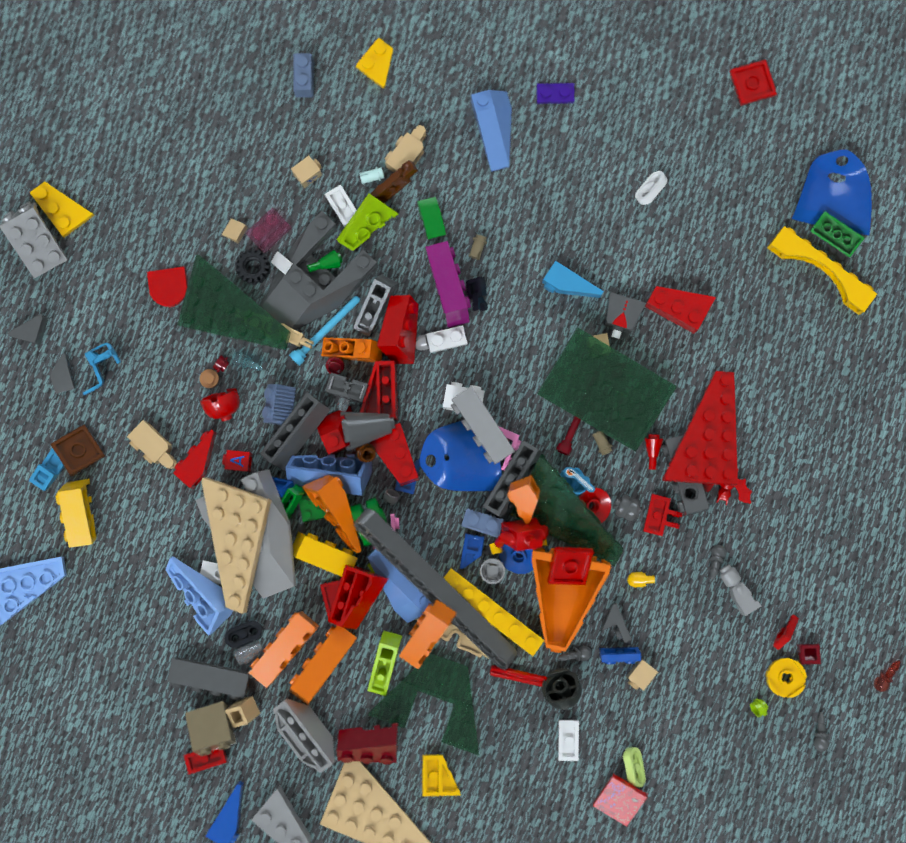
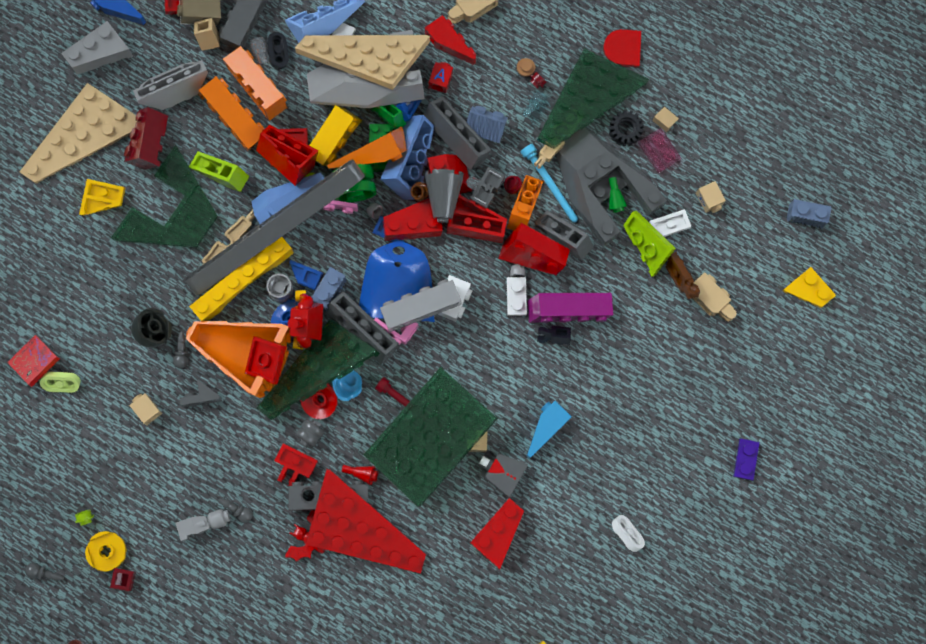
camera: 95 degrees right, 5 degrees down
(221, 405) = (497, 72): red cylinder -> none
(281, 262) = (624, 154): white sticker -> none
(372, 175) = (695, 259): light aqua pin -> none
(427, 633) = (234, 211): orange wedge -> none
(431, 217) = (640, 307): green slope -> none
(477, 247) = (602, 346): dark tan pin -> none
(494, 124) = (728, 390): medium blue wedge -> none
(517, 675) = (175, 292): red axle -> none
(525, 497) = (341, 329): orange slope -> none
(568, 740) = (102, 325): white plate -> none
(572, 473) = (356, 384): dark azure sticker -> none
(602, 443) = (379, 424): dark tan pin -> none
(626, 654) = (170, 392): blue plate -> none
(639, 579) = (237, 430): yellow cylinder -> none
(786, 633) = (149, 561): red tile -> none

